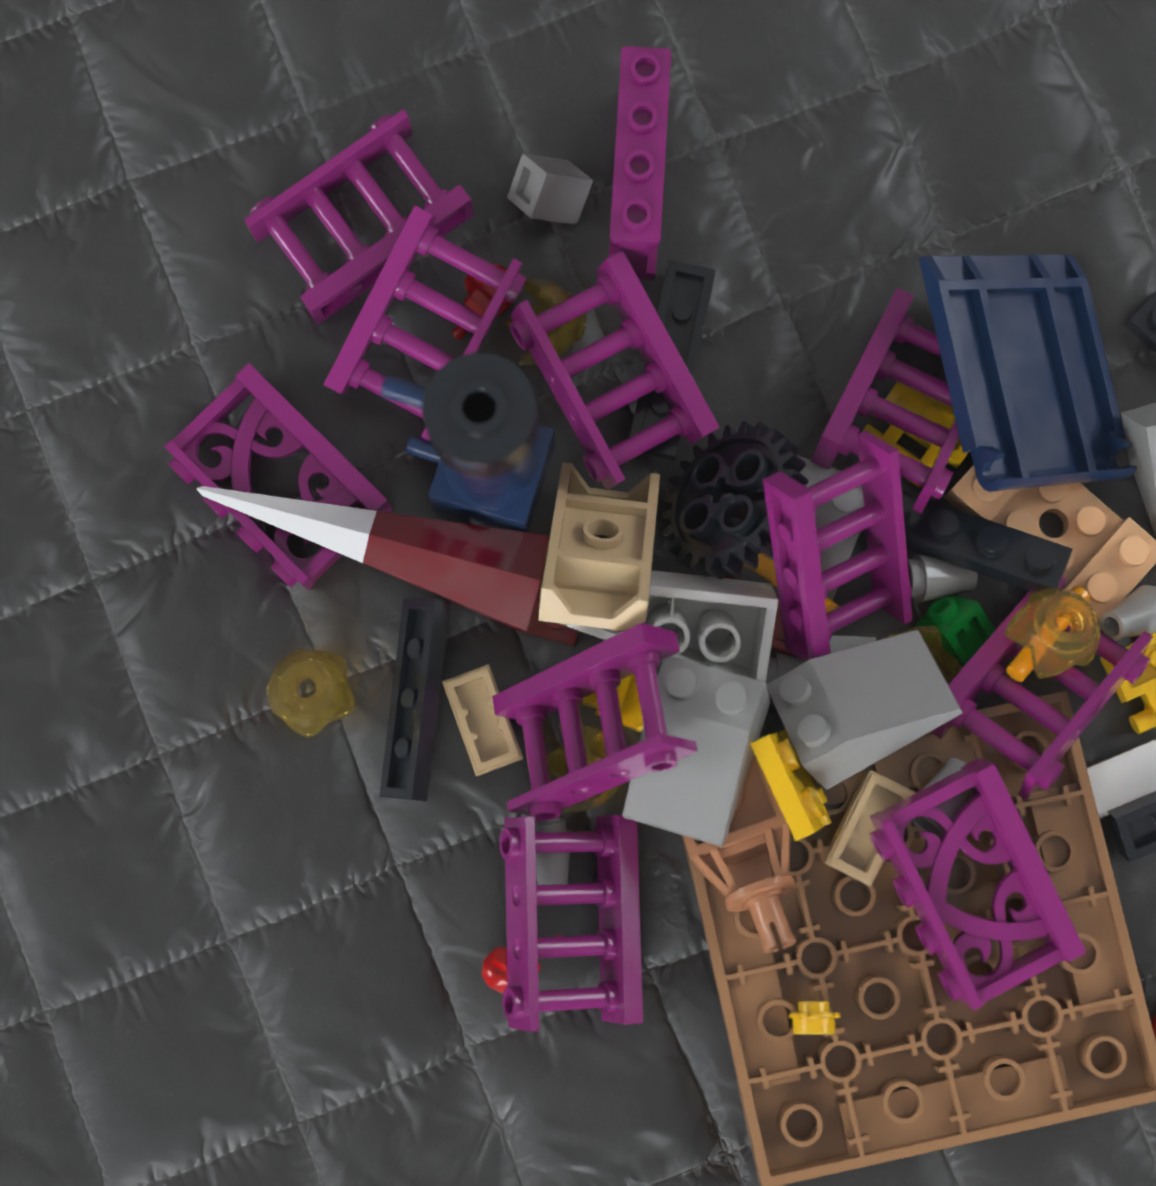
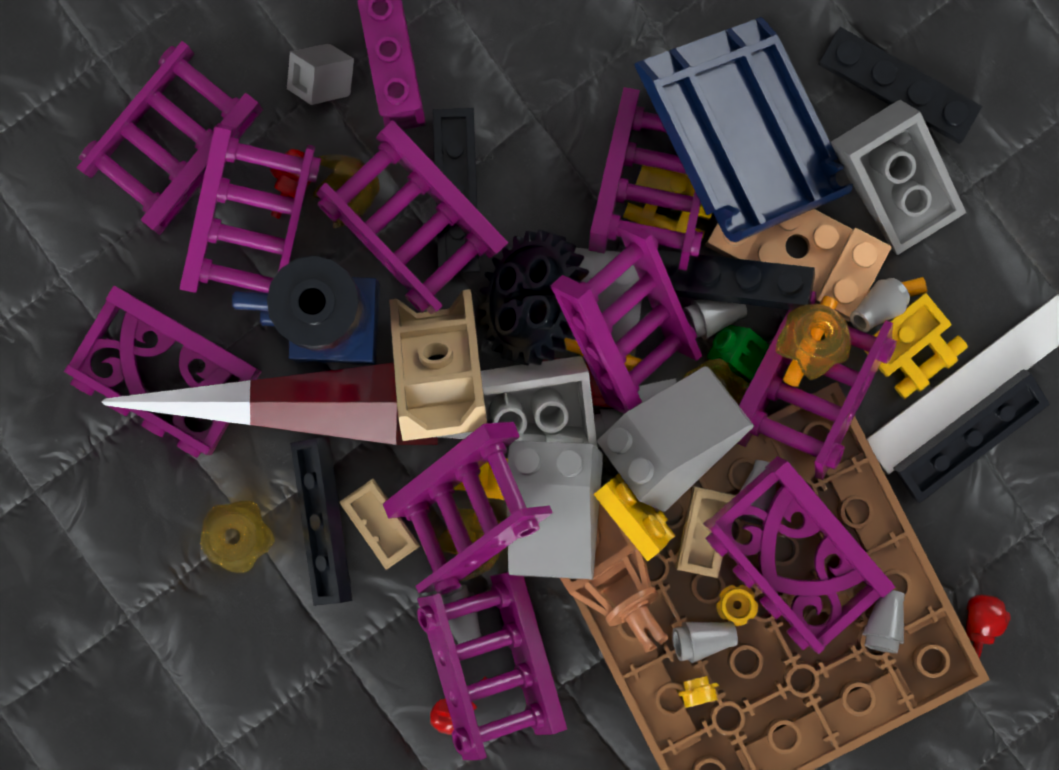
camera: 15 degrees left, 5 degrees up
(834, 956) = (701, 639): none -> light grey cone
(899, 925) = (748, 607): none -> yellow plate
(1061, 996) = (886, 623): none -> light grey cone

